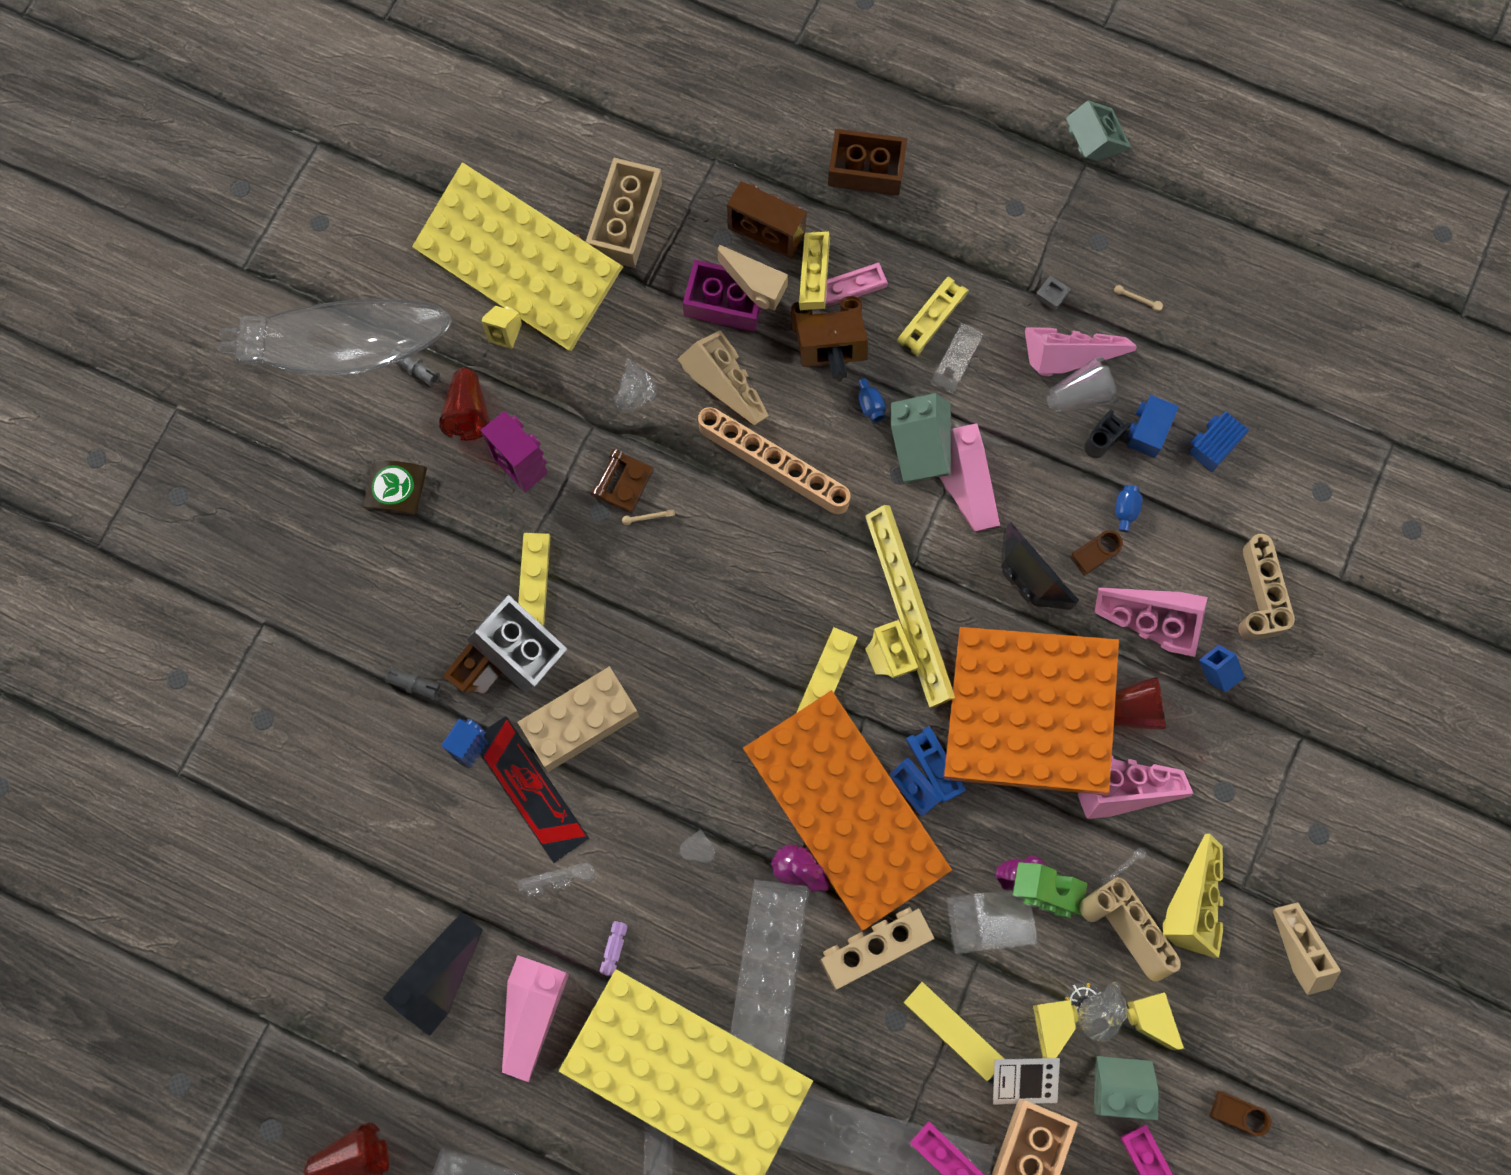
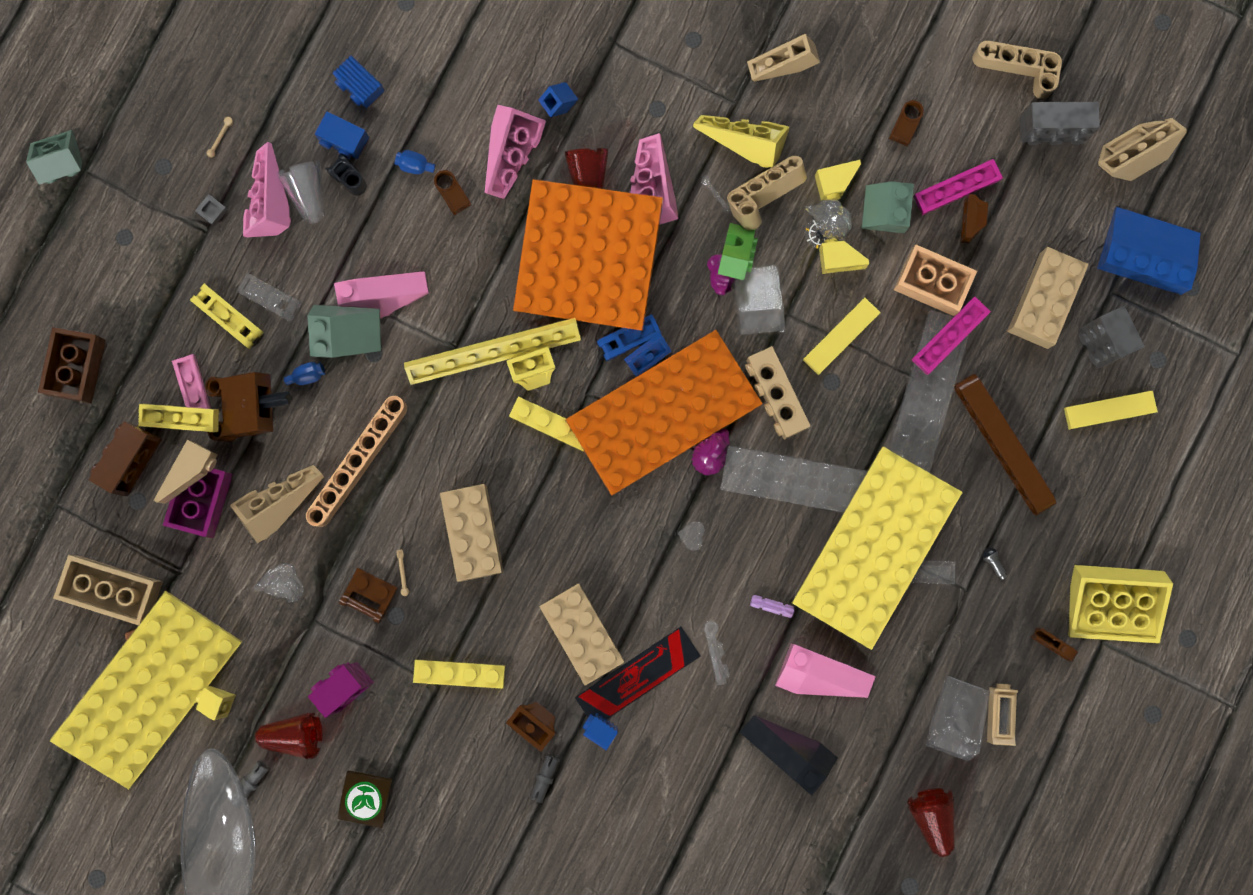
camera: 85 degrees left, 10 degrees up
(516, 644) = (516, 686): flat silver brick -> none
(694, 589) = (471, 532): none -> tan brick
(1026, 1080) = (881, 282): white sticker -> none
(1032, 574) = (469, 247): black wedge -> none
(1261, 586) = (488, 60): tan beam -> none

